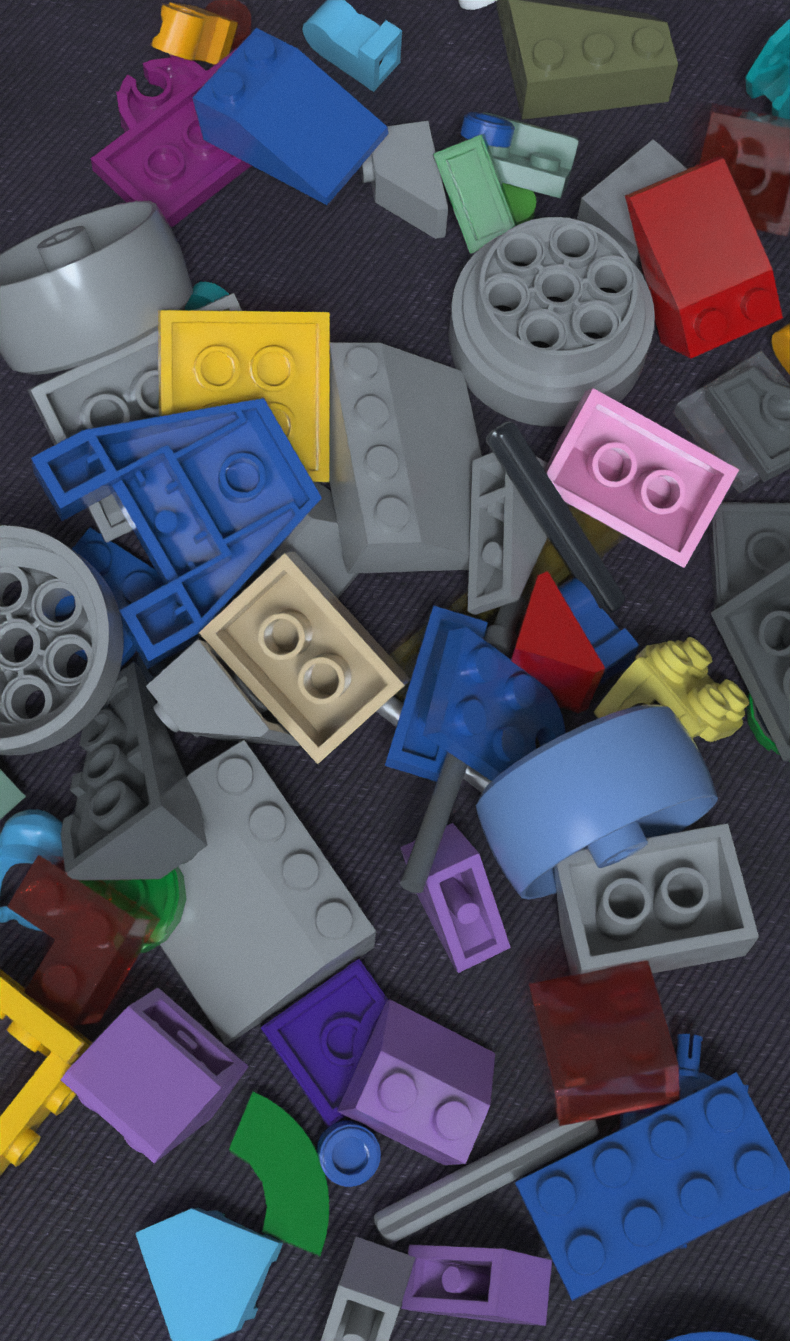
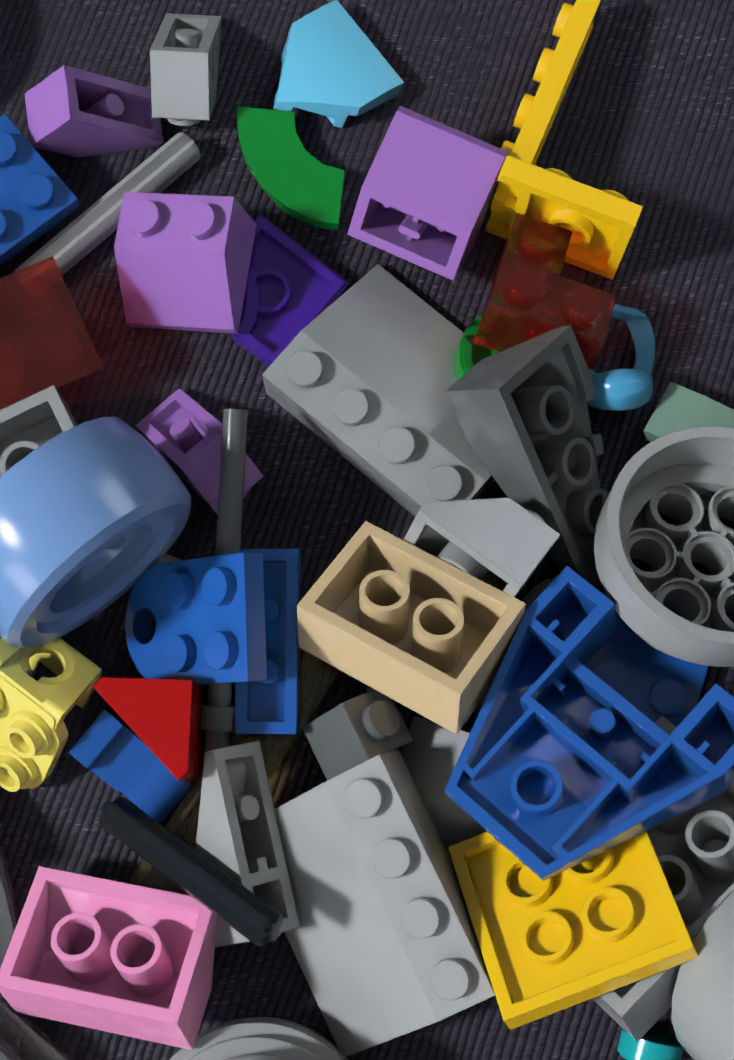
camera: 170 degrees right, 10 degrees up
(348, 1153) = (242, 185): blue tile -> none
(381, 595) = (356, 732): none -> dark grey brick

